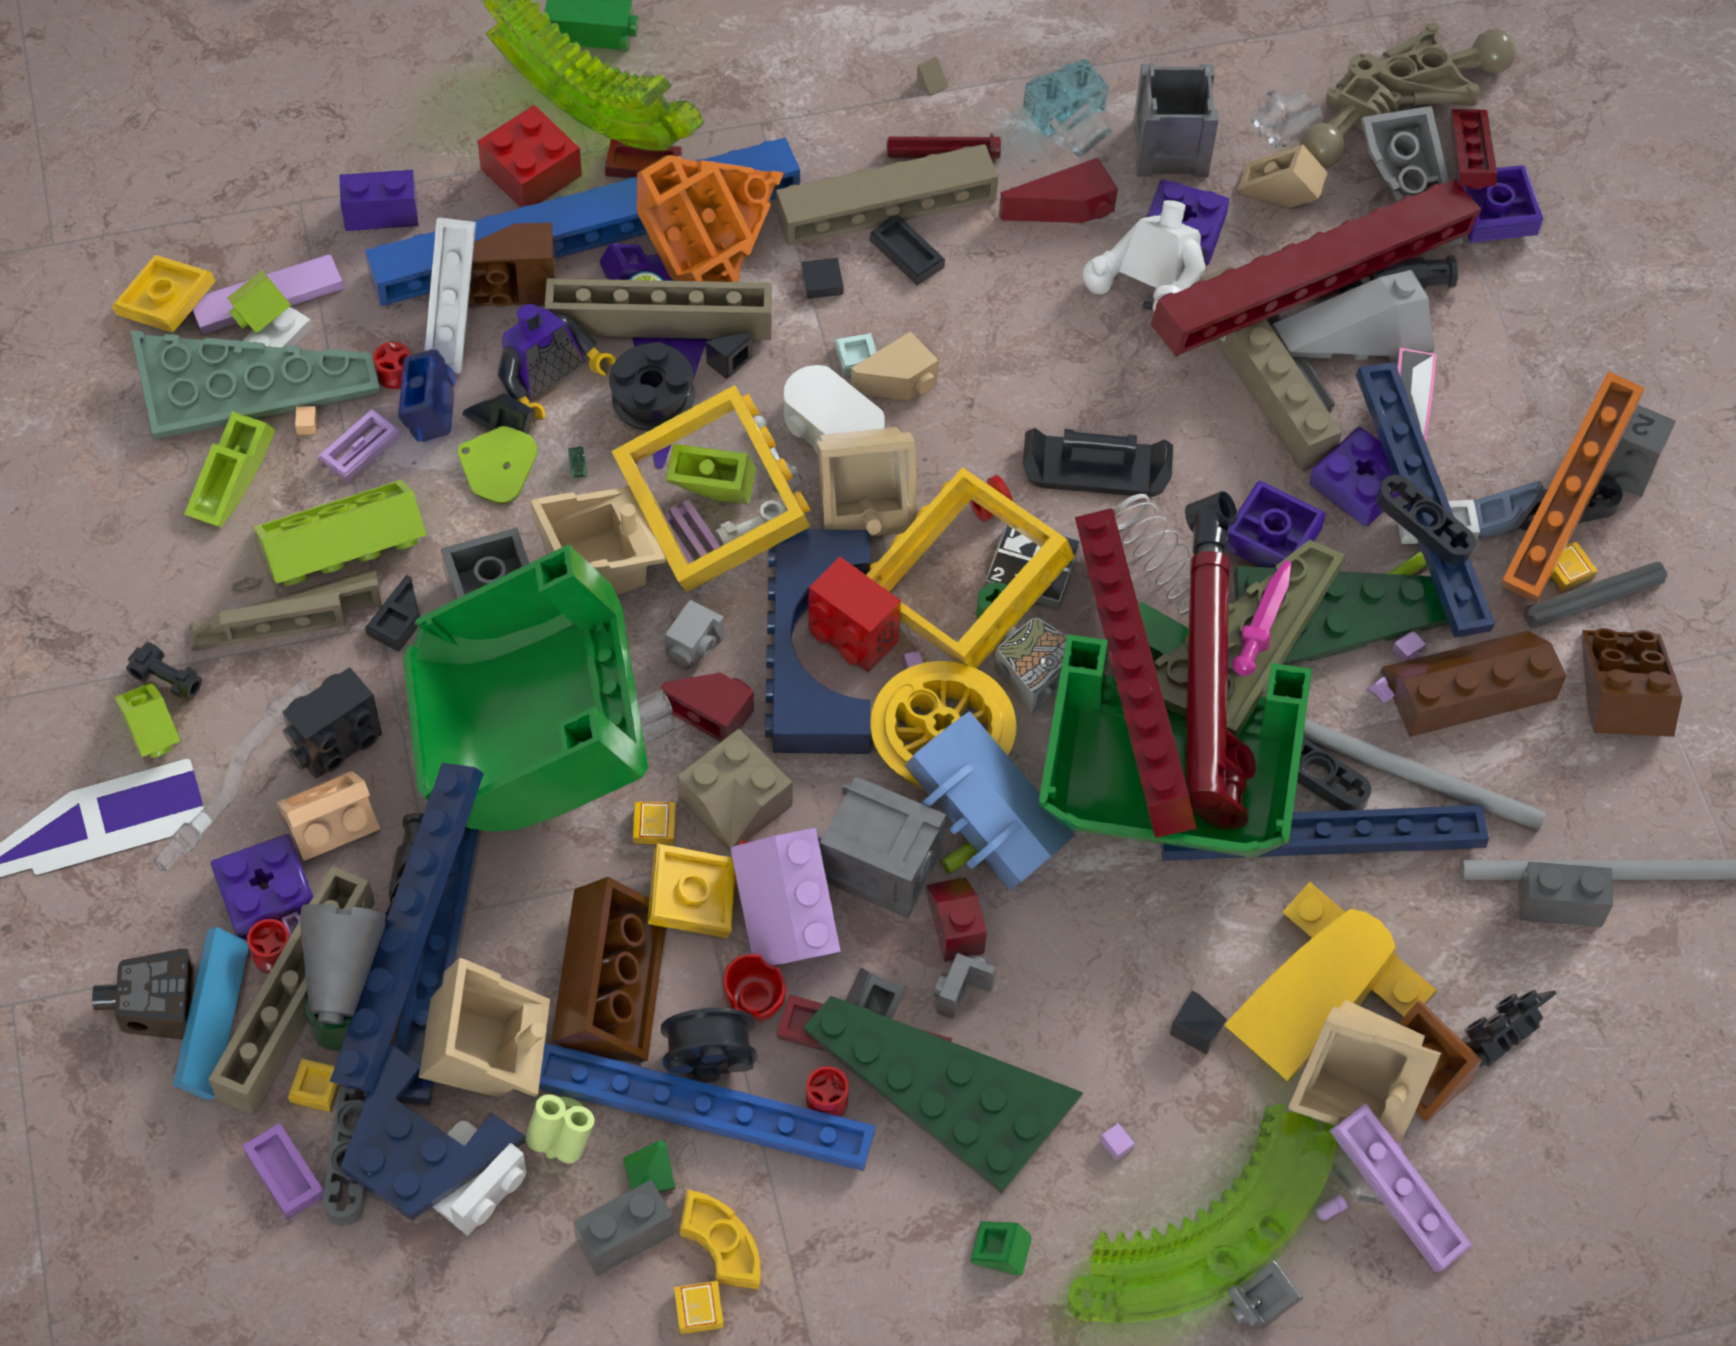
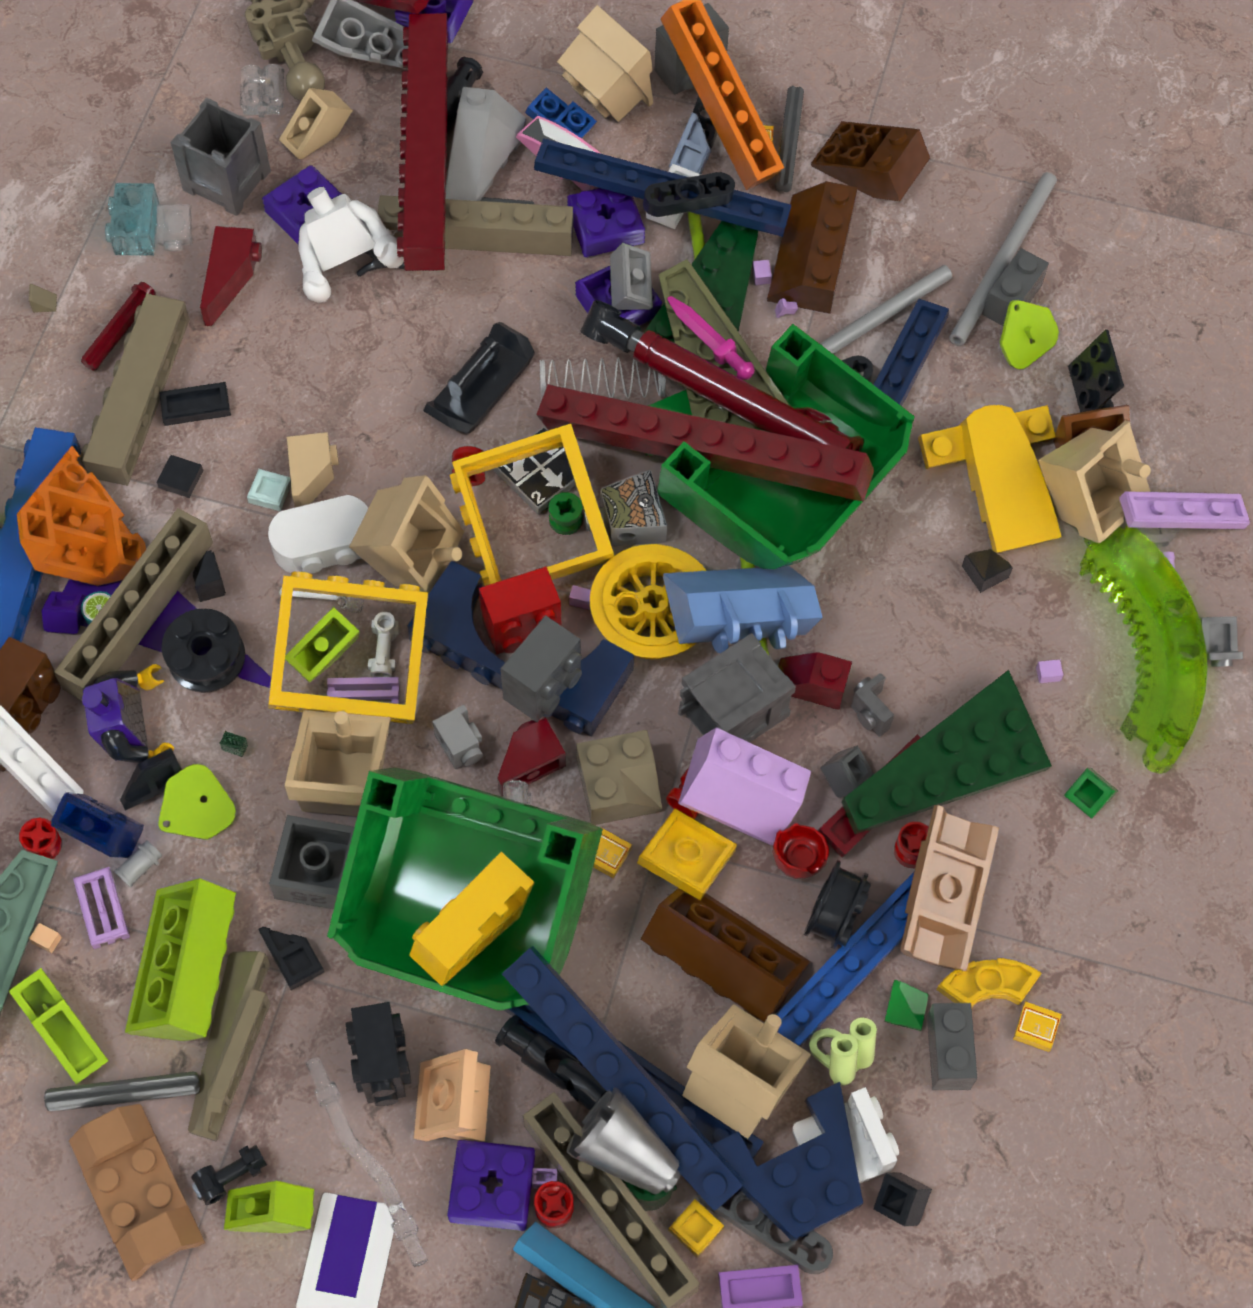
camera: 60 degrees left, 5 degrees up
(116, 609) = (134, 1188): none -> medium nougat piece
(197, 552) = (122, 1091): none -> dark grey axle
(415, 450) = (138, 863): none -> light grey pin
(441, 1258) = (902, 1199): none -> black slope
(489, 719) = (472, 919): none -> yellow wedge
(786, 650) = (542, 669): none -> dark grey brick
(788, 1138) = (948, 890): none -> piece
(1296, 524) = (631, 278): none -> light grey slope
(1458, 377) = (554, 109): none -> blue slope
(1521, 921) = (1023, 324): none -> lime piece
(1526, 377) = (608, 66): none -> tan piece

